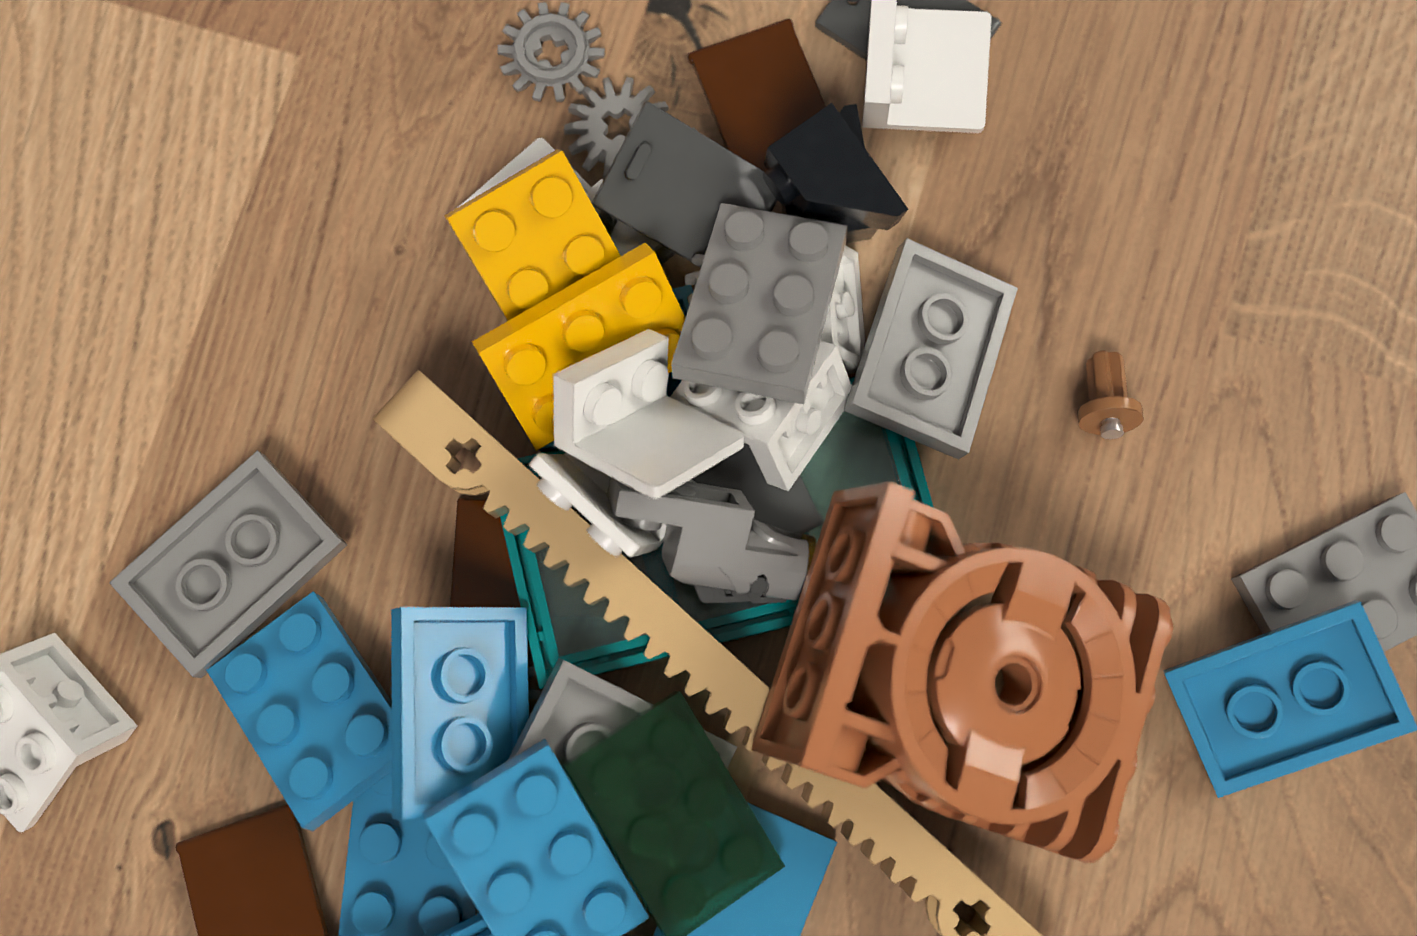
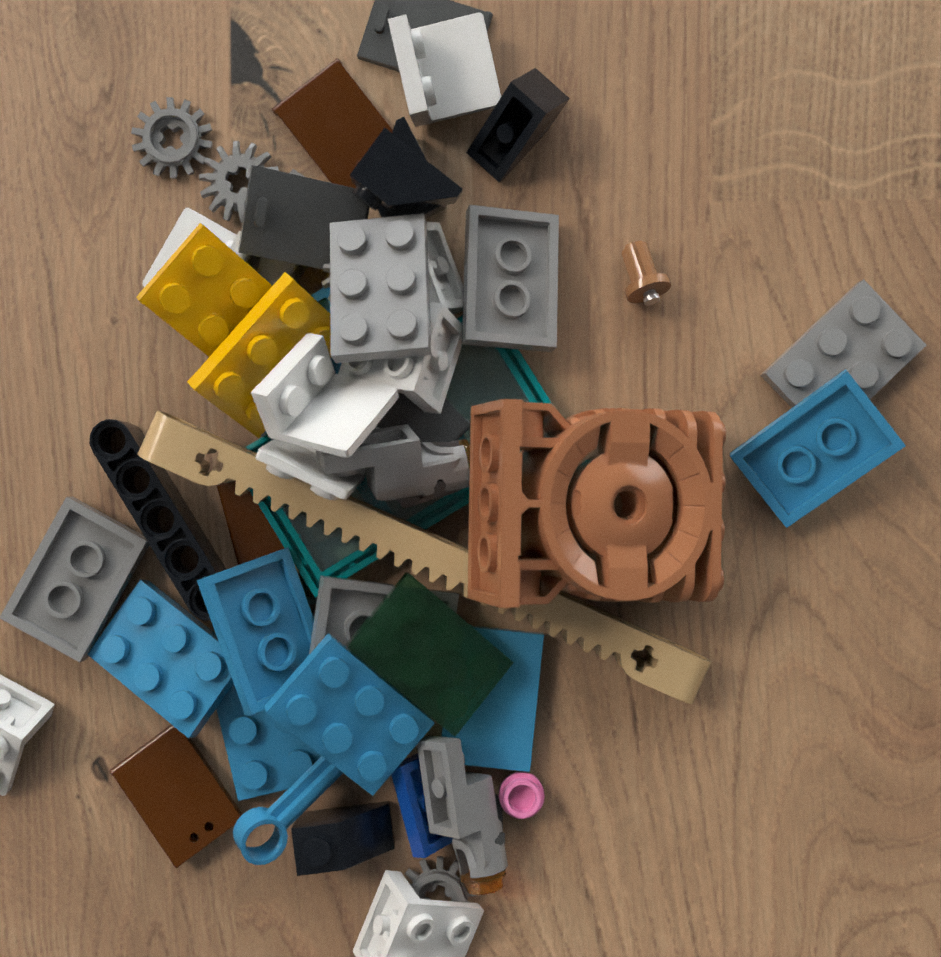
camera: 15 degrees left, 10 degrees up
(358, 494) = (145, 508): none -> black beam
(995, 159) = (517, 123): none -> black slope

